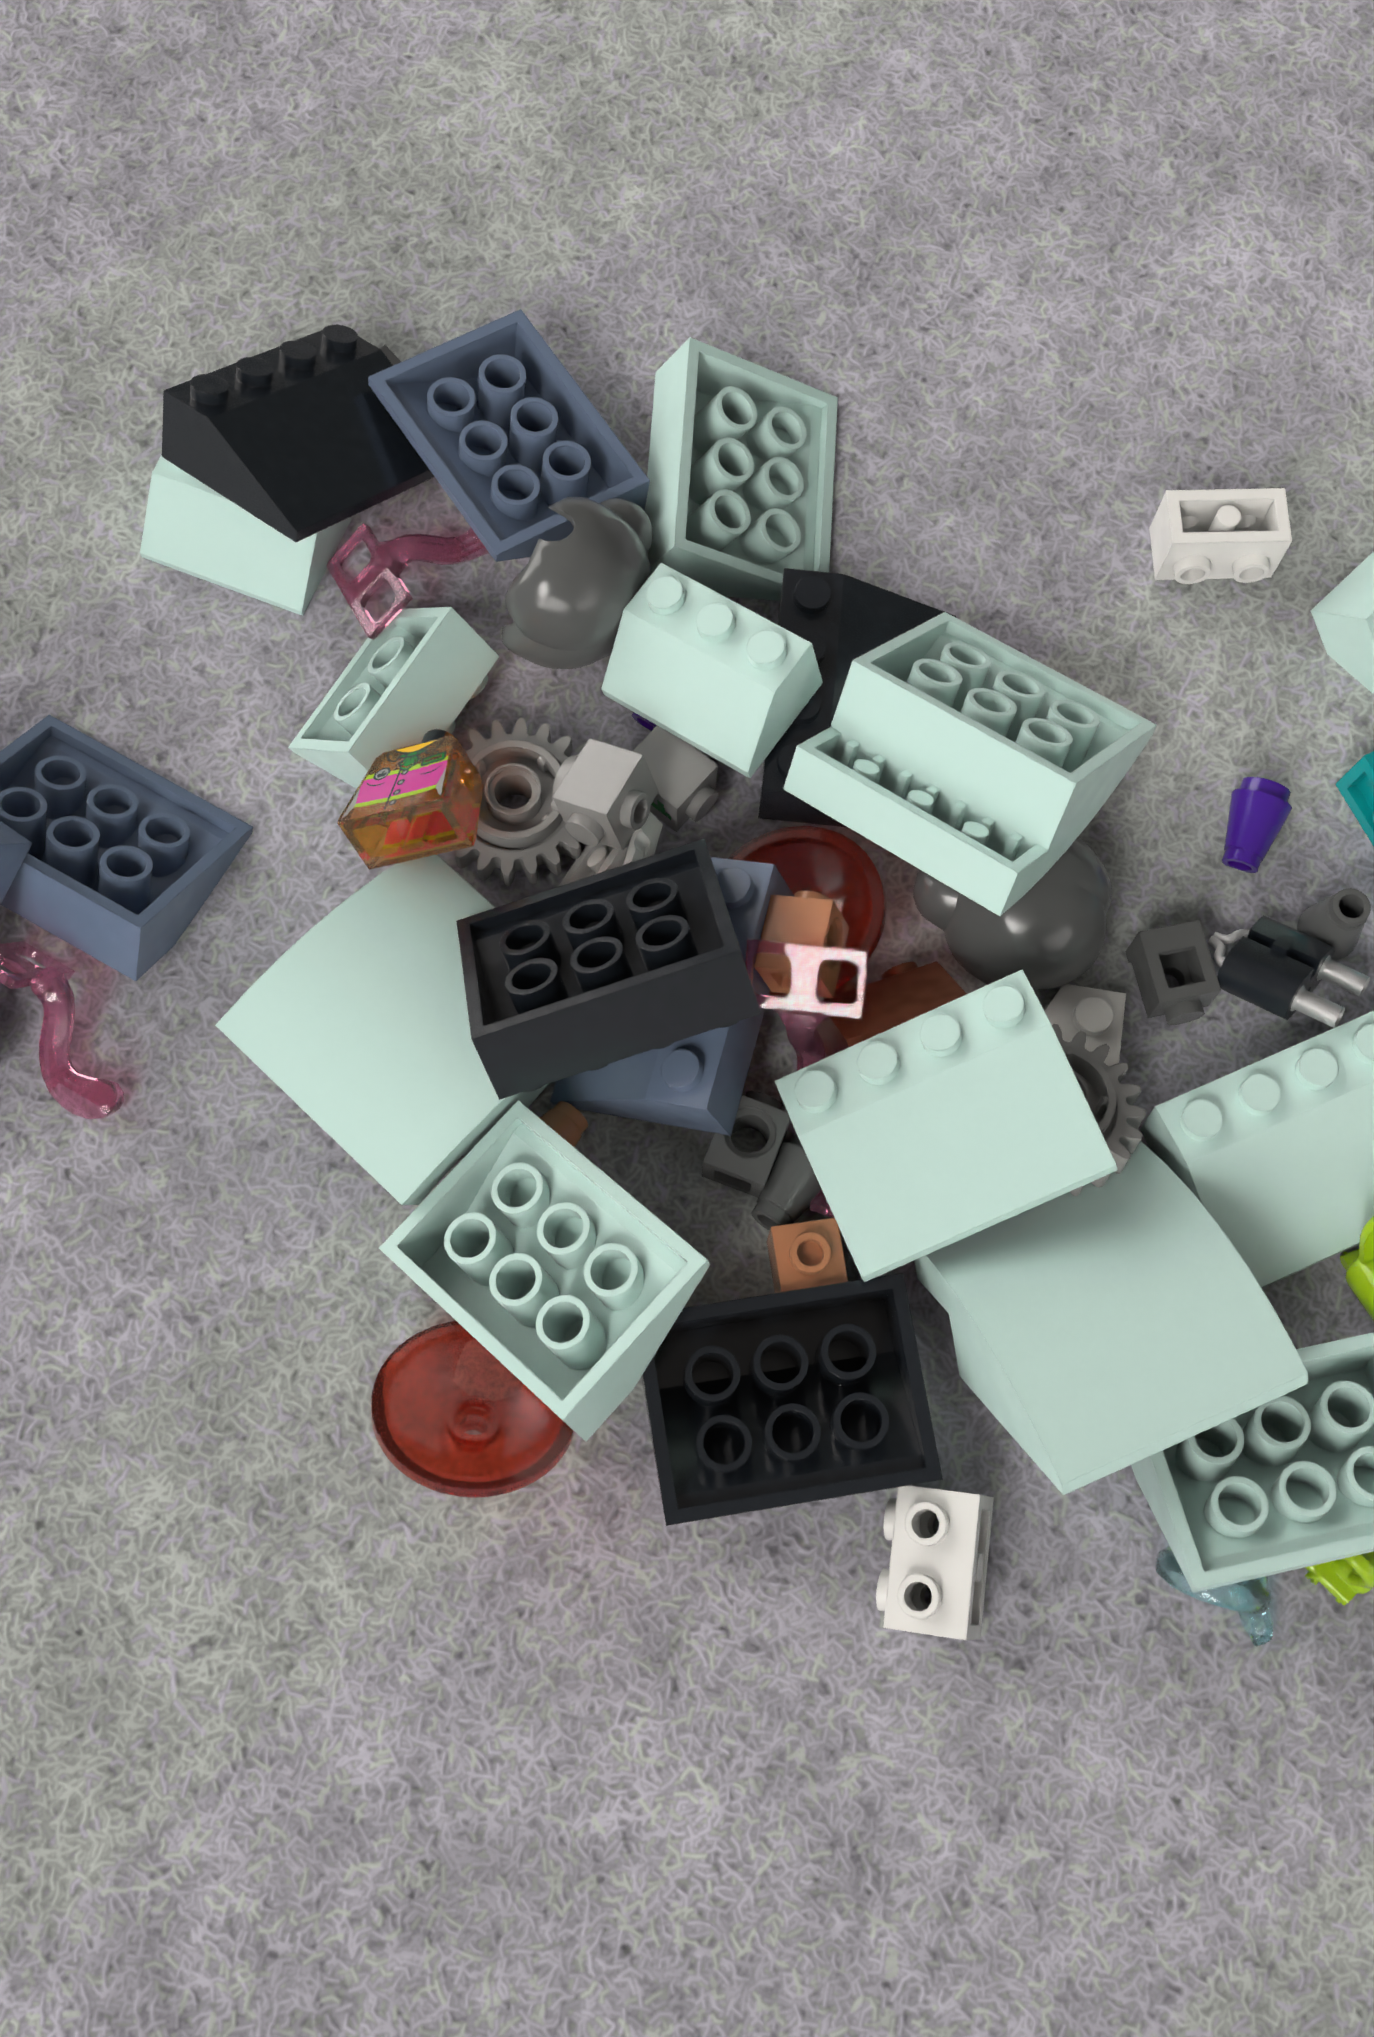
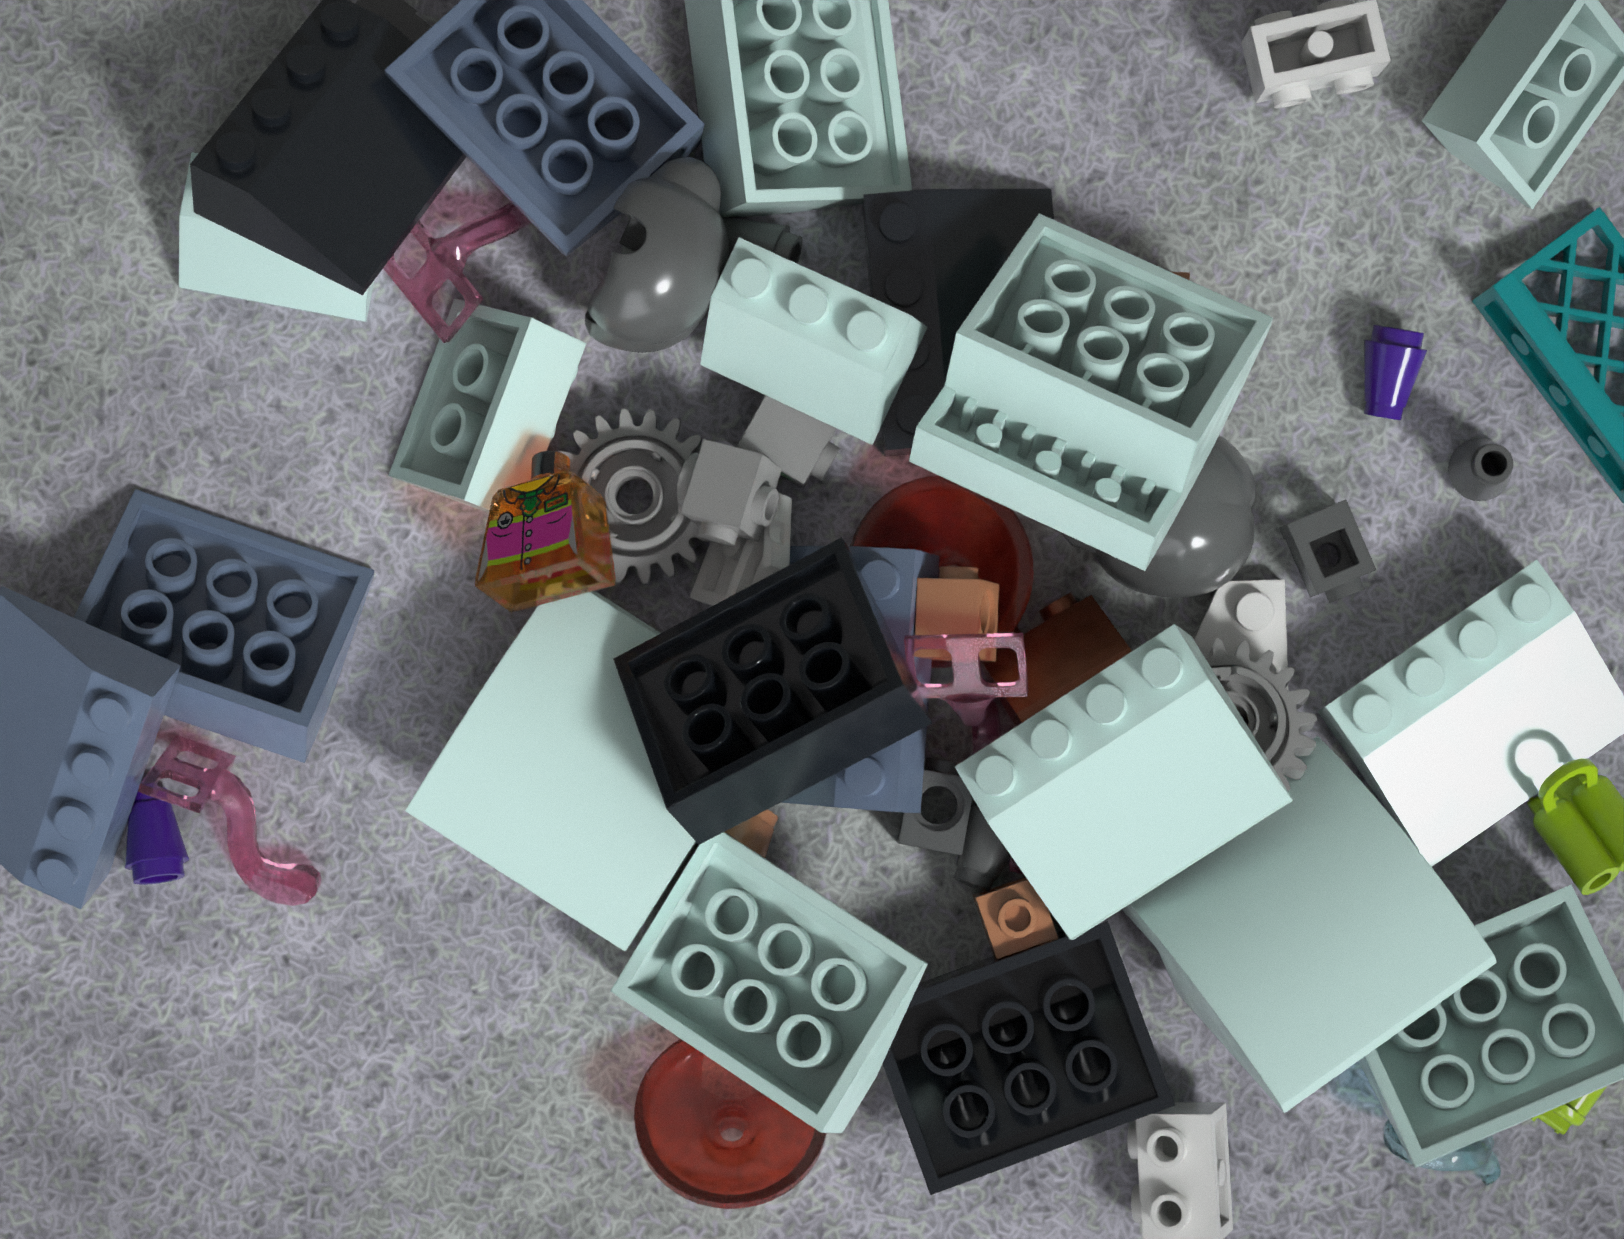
camera: 10 degrees left, 15 degrees up
(1281, 969) = (1432, 529): black piece -> none

